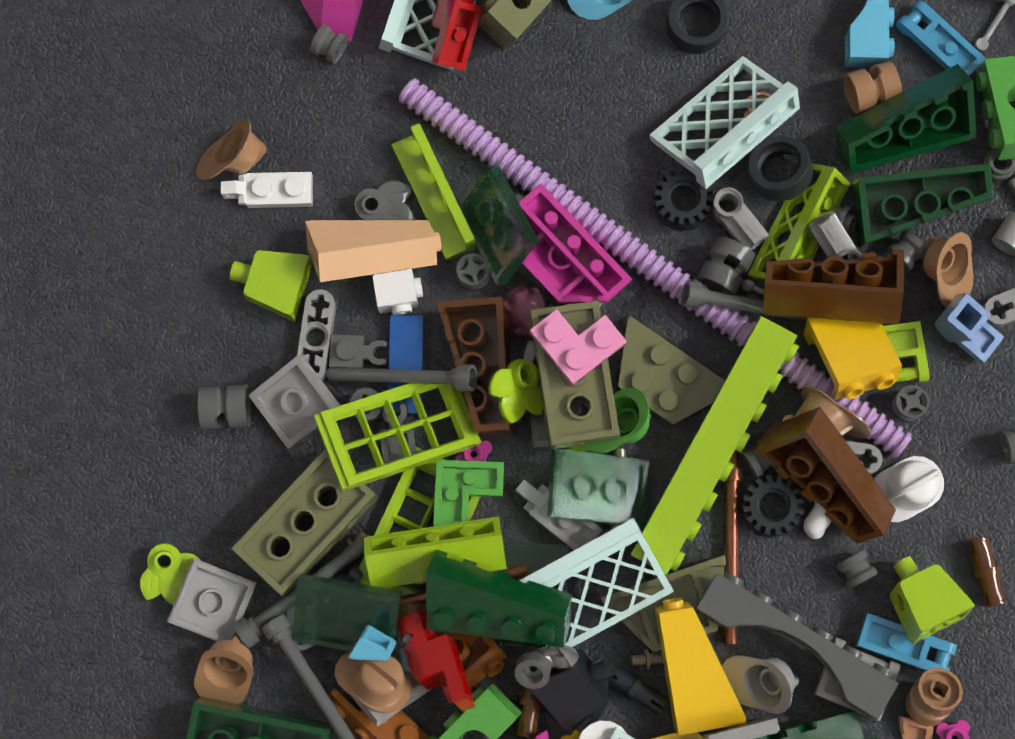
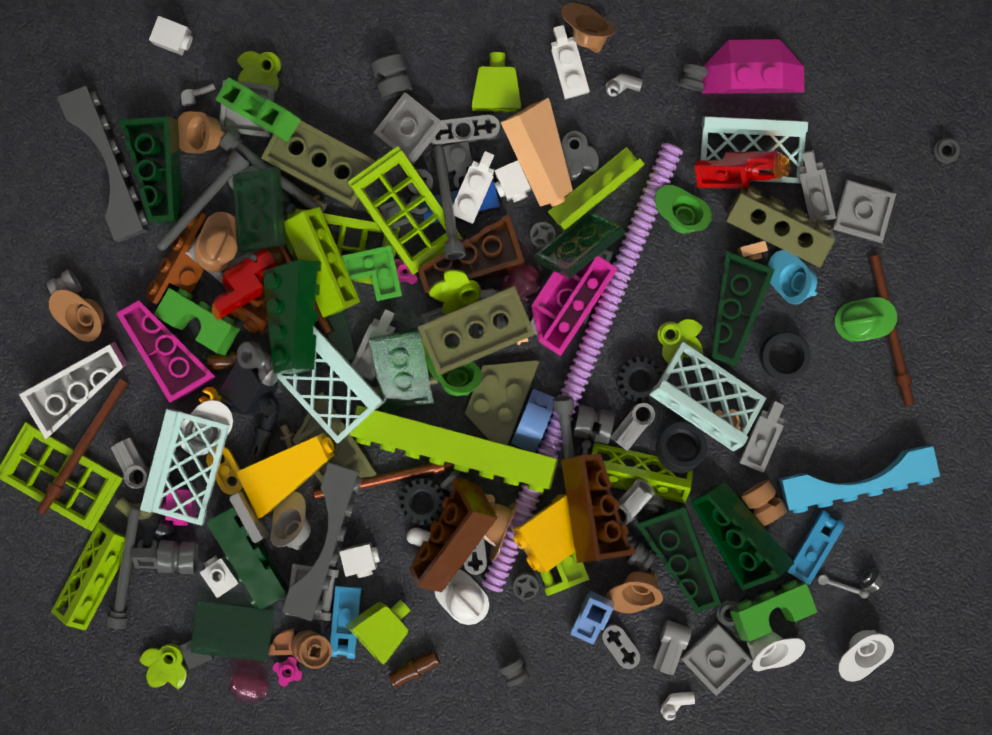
camera: 75 degrees right, 10 degrees up
(91, 674) = (171, 36): none -> white brick
(174, 674) = (188, 95): none -> light grey hand
(213, 588) = (257, 109): none -> bright green arch
(311, 132) = (621, 82): none -> light grey arm
(373, 646) = (240, 235): medium azure slope -> none
(392, 339) = (474, 189): none -> white hinge
(488, 94) = (682, 209): none -> bright green piece
(559, 27) = (753, 251): none -> light nougat plate
(573, 353) = (488, 327): bright pink plate -> none
(619, 55) = (740, 300): none -> dark green wedge
(637, 133) = (684, 332): none -> lime plate
(705, 338) = (533, 421): none -> medium blue brick
(790, 66) = (763, 438): none -> light grey hinge
(829, 604) = (360, 559): none -> white brick
(856, 569) = (391, 573): dark grey wheel -> none

